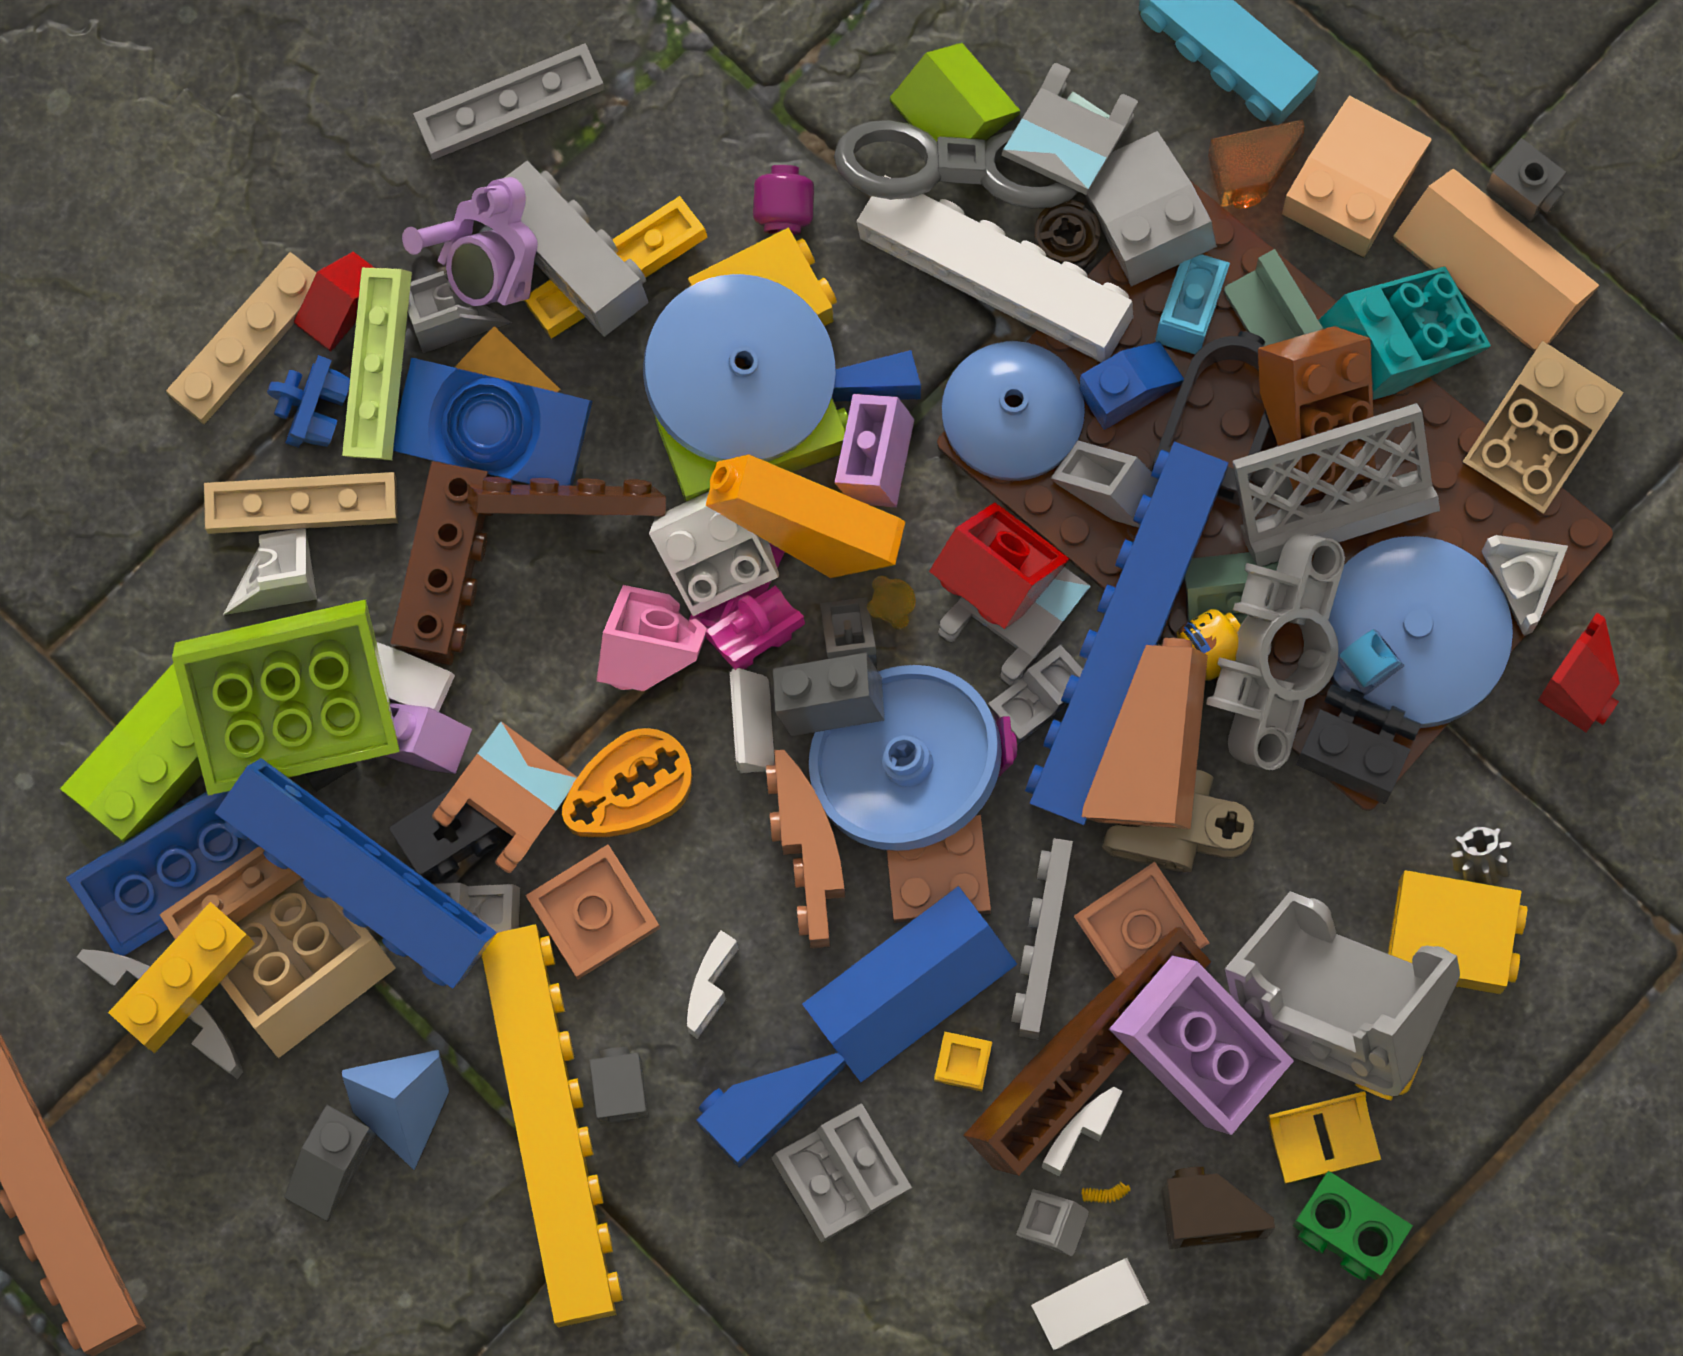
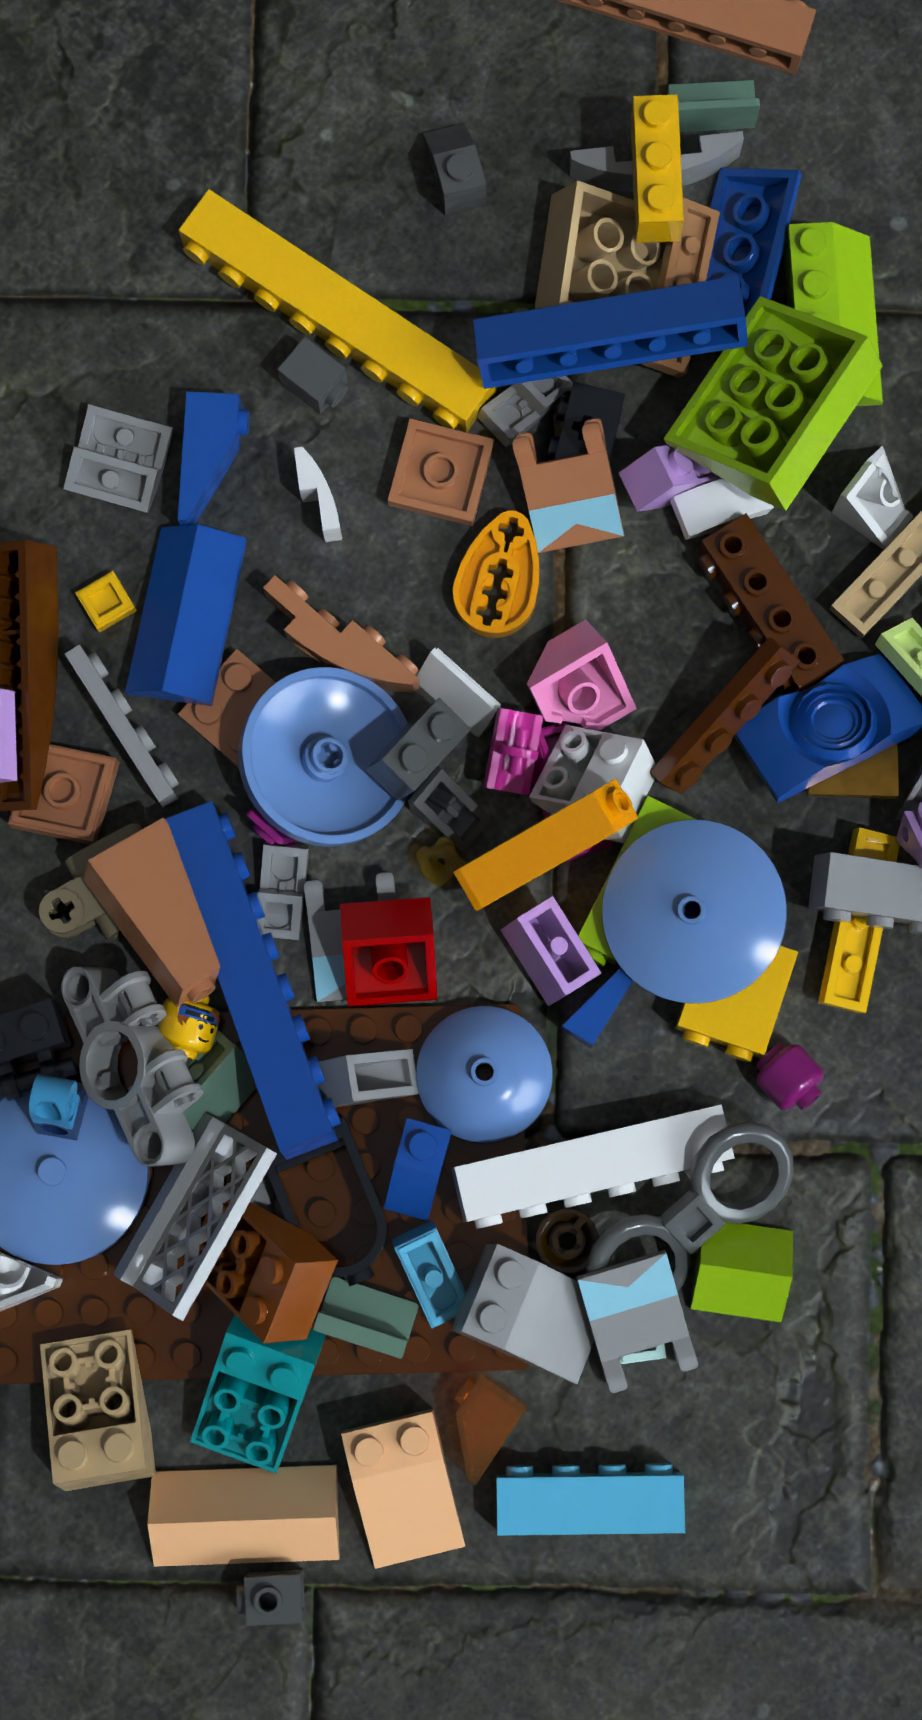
camera: 135 degrees right, 5 degrees up
(70, 1017) = (716, 105): none -> sand green panel
(399, 1100) = (447, 244): medium blue slope -> none

